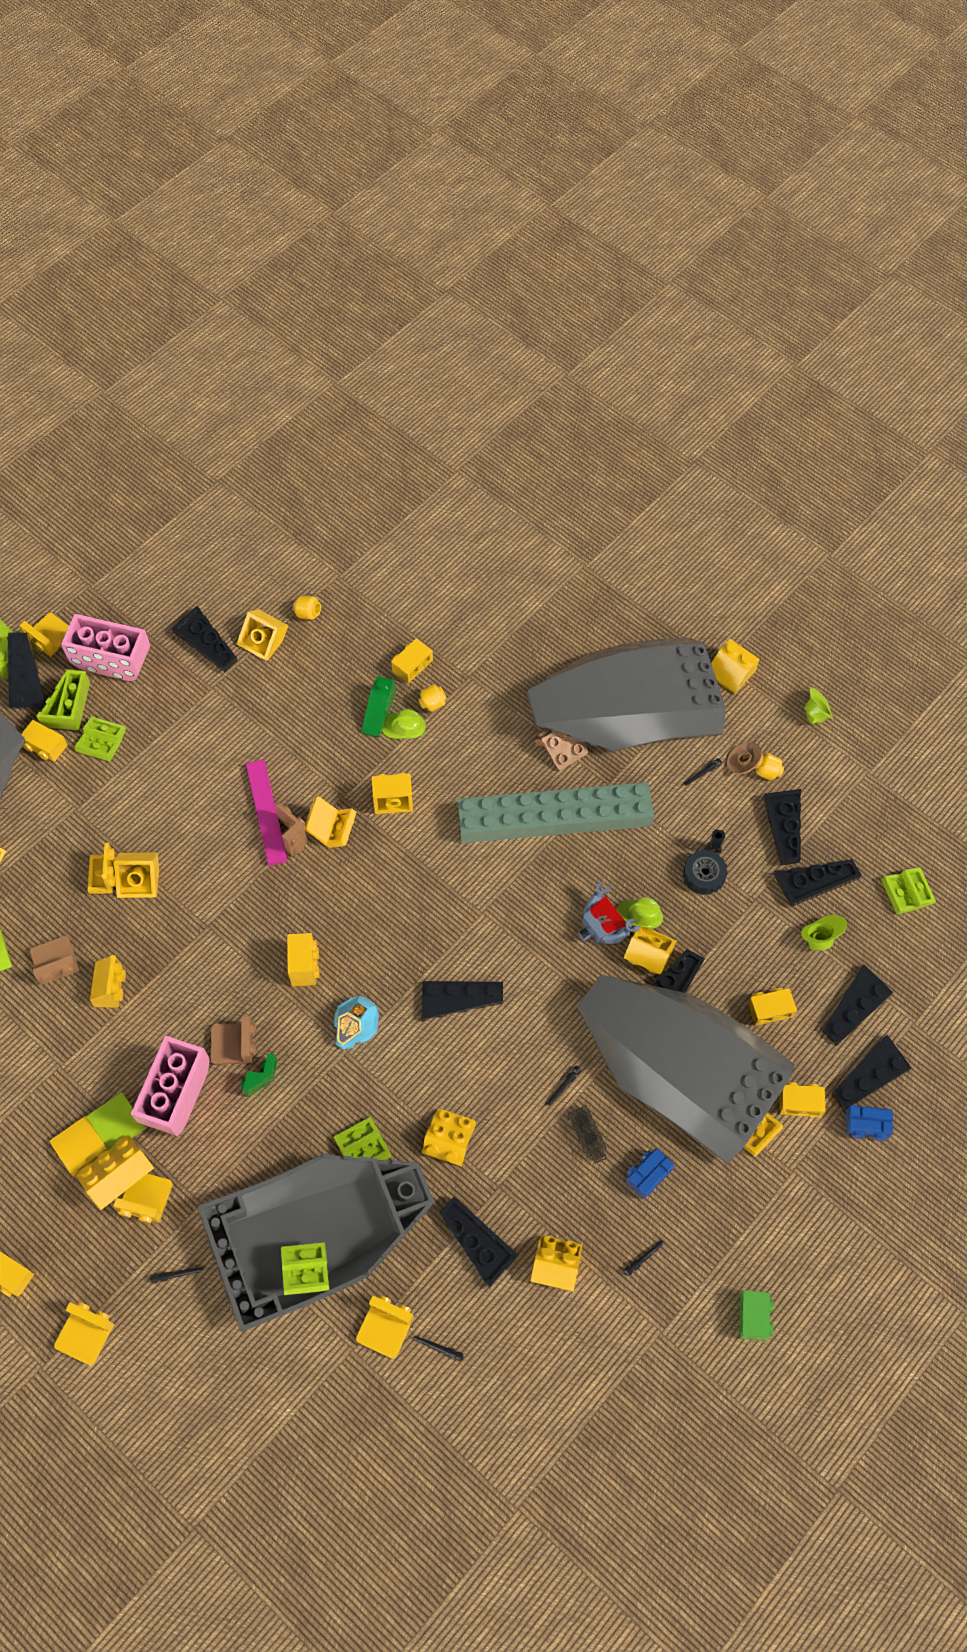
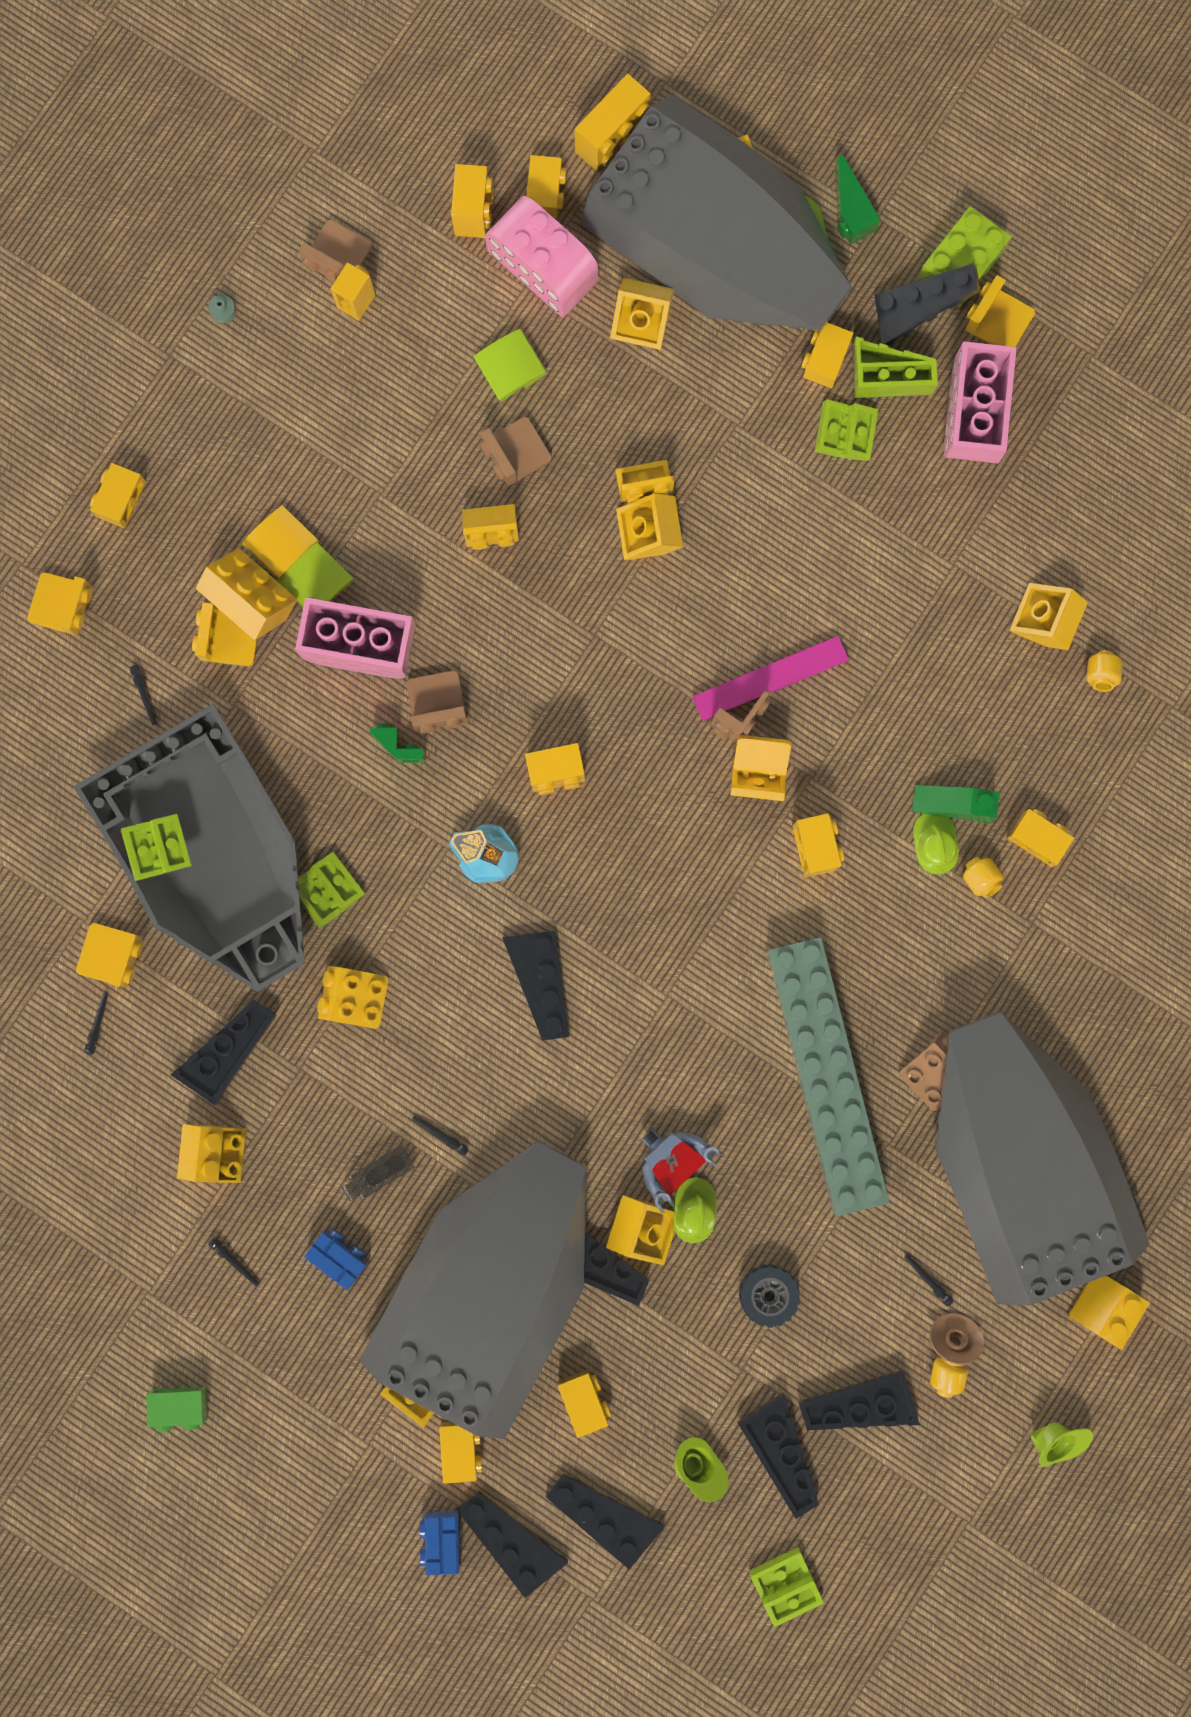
camera: 85 degrees right, 20 degrees up
(201, 636) = (1032, 531): black wing -> none
(716, 840) = (813, 1308): black bar -> none

